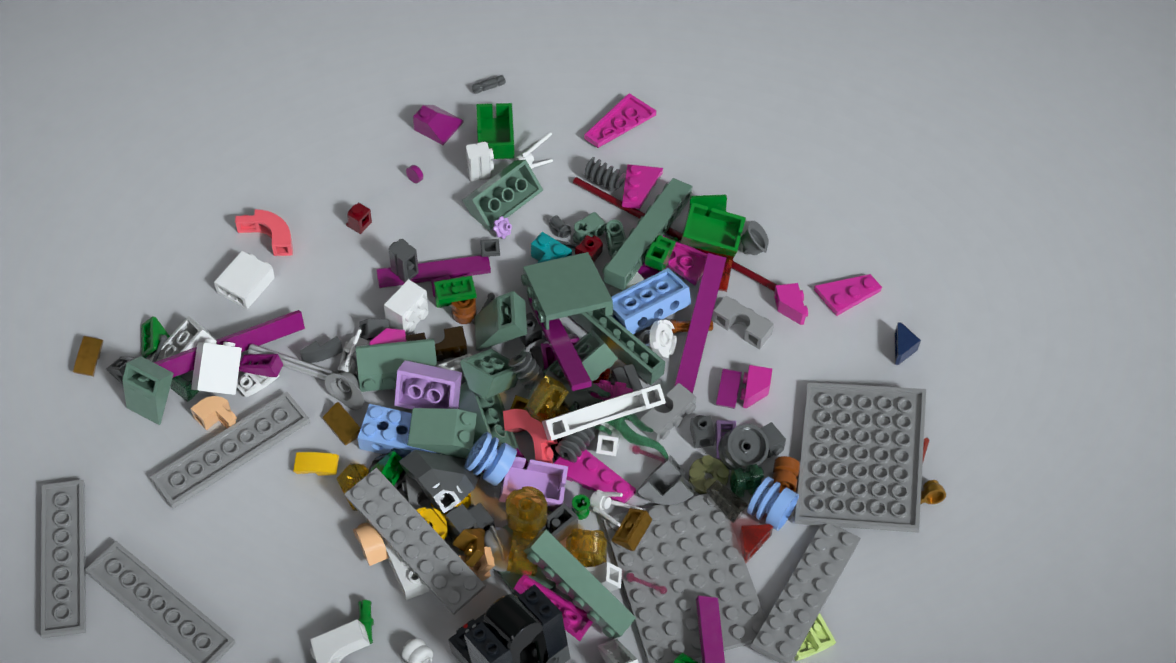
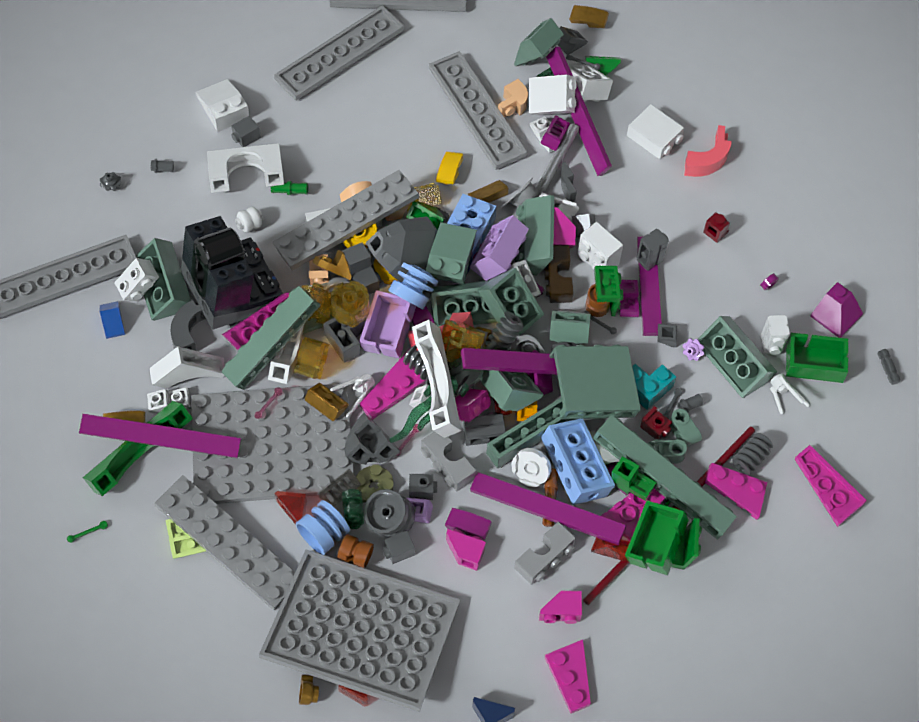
camera: 100 degrees right, 5 degrees up
(582, 508) = (361, 365): green bush -> none
(754, 239) = (651, 590): dark grey piece -> none

